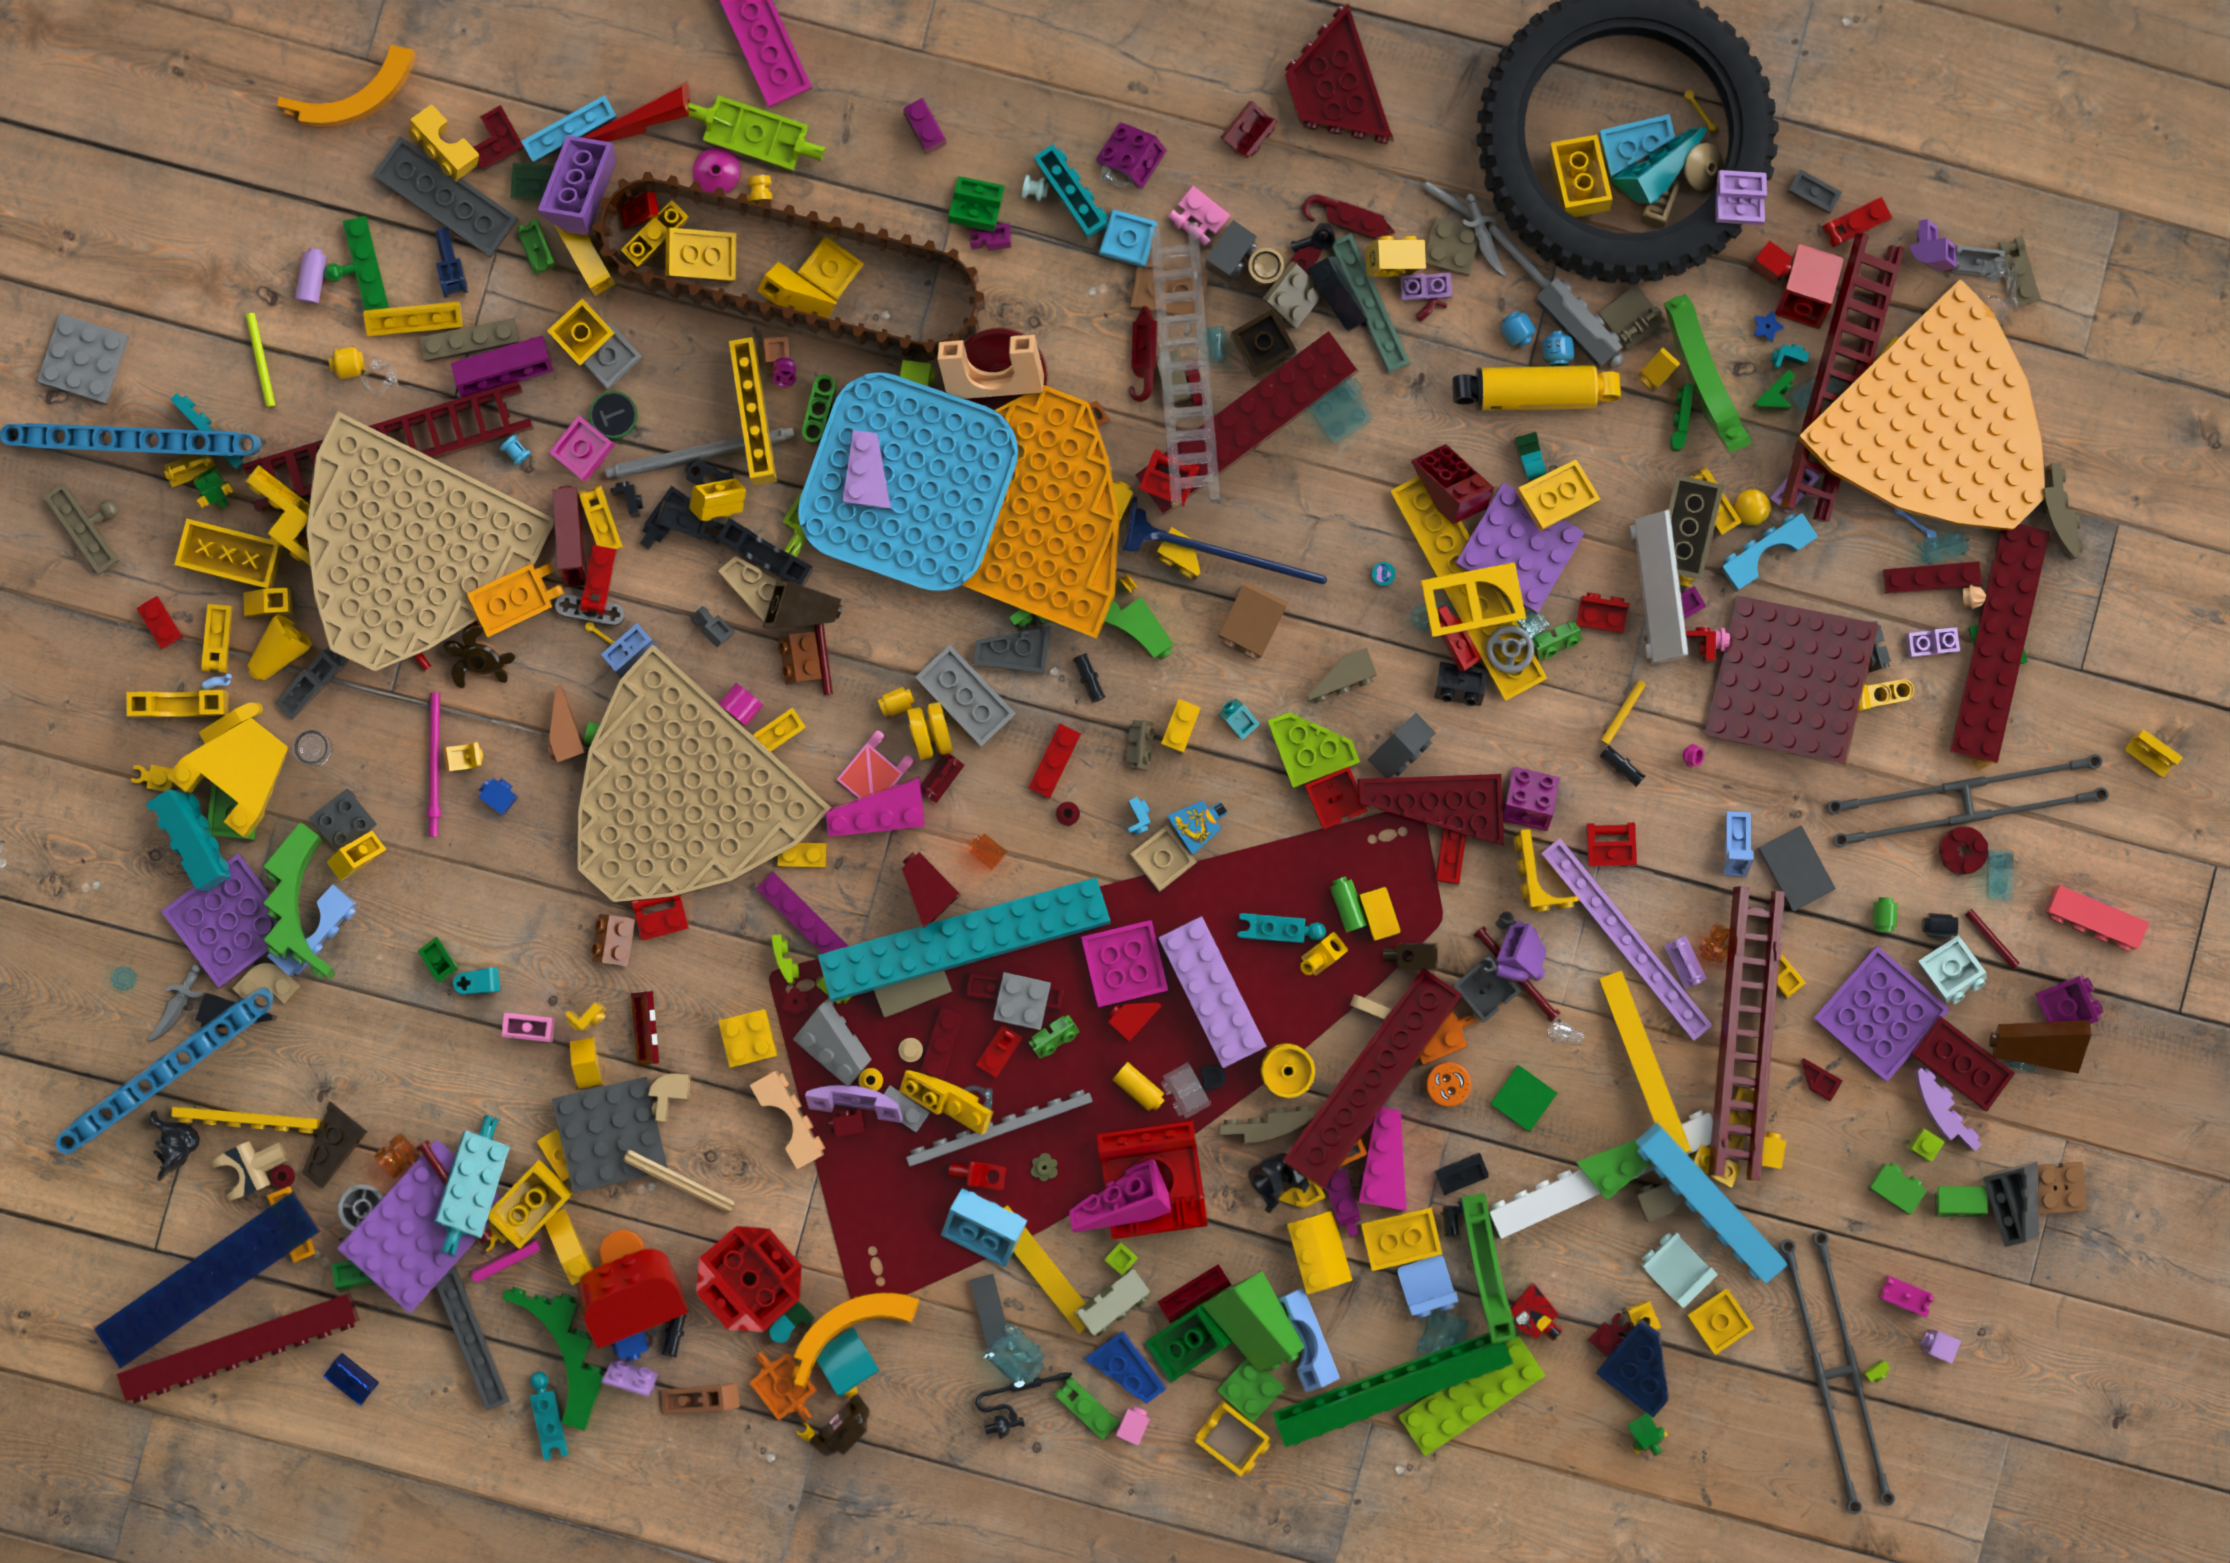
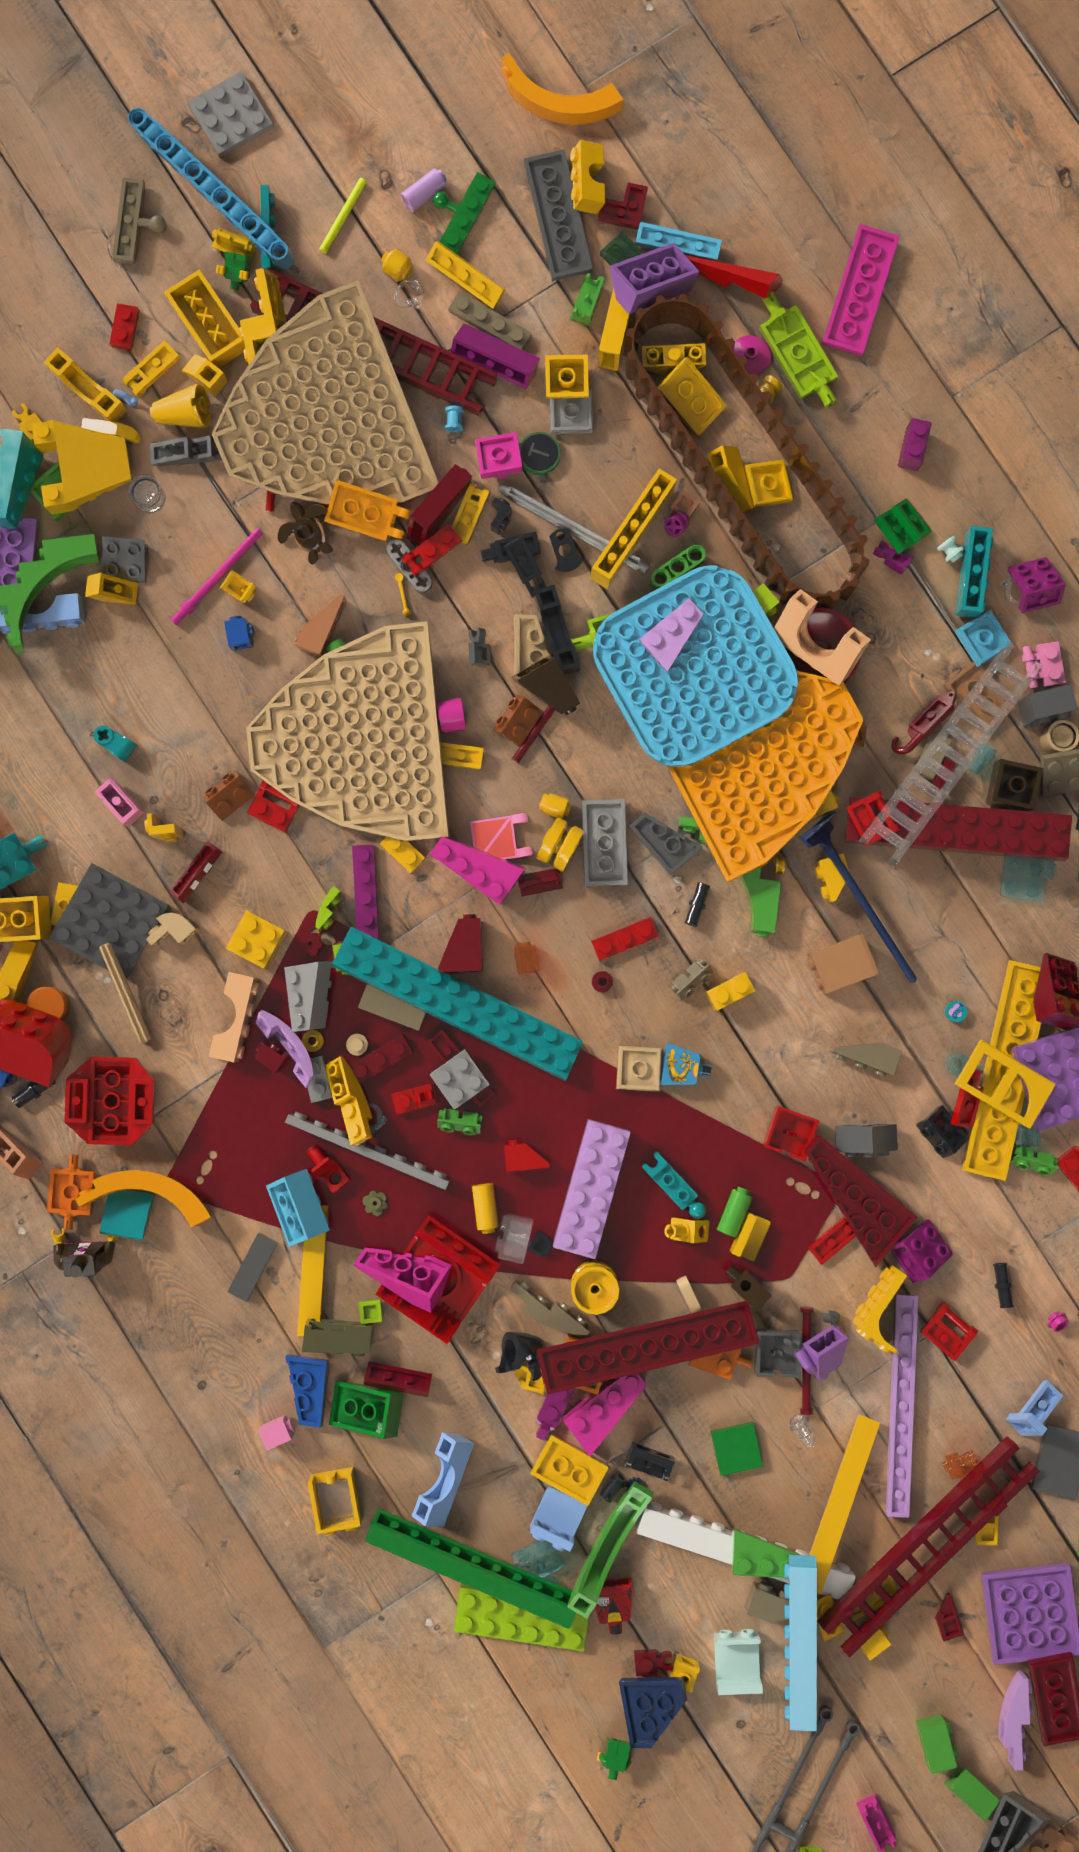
camera: 45 degrees right, 0 degrees up
(438, 959) = (101, 705): green slope -> none
(449, 269) = (519, 264): dark blue connector -> none
(585, 1063) = (136, 859): yellow slope -> none
(628, 650) = (410, 612): medium blue hinge -> none
(639, 210) = (677, 333): red plate -> none
(717, 499) = (557, 566): yellow brick -> none
(783, 1327) = (105, 1153): leg -> none
(1002, 1424) = (191, 1350): black piece -> none
(1015, 1356) = (241, 1314): clear light blue brick -> none
(1087, 1408) = (258, 1390): bright green plate -> none
(1124, 963) = (550, 1116): dark pink plate -> none
(1140, 809) = (653, 1022): medium azure bracket -> none
(1239, 718) = (773, 1021): teal bracket -> none
(1250, 1390) = (378, 1477): bright green plate -> none
(1256, 1323) = (421, 1439): bright green slope -> none
(1310, 749) = (802, 1084): lime plate -> none
(1319, 1252) = (505, 1428): yellow slope -> none
(1448, 1084) = (694, 1393): orange head -> none
(1526, 640) = (1006, 1139): light grey piece -> none
(1623, 712) = (1038, 1248): yellow bar -> none
(1685, 962) = (927, 1456): lavender hinge -> none
(1720, 1321) = (735, 1723): yellow plate -> none
(1925, 1145) = (983, 1732): lime brick -> none

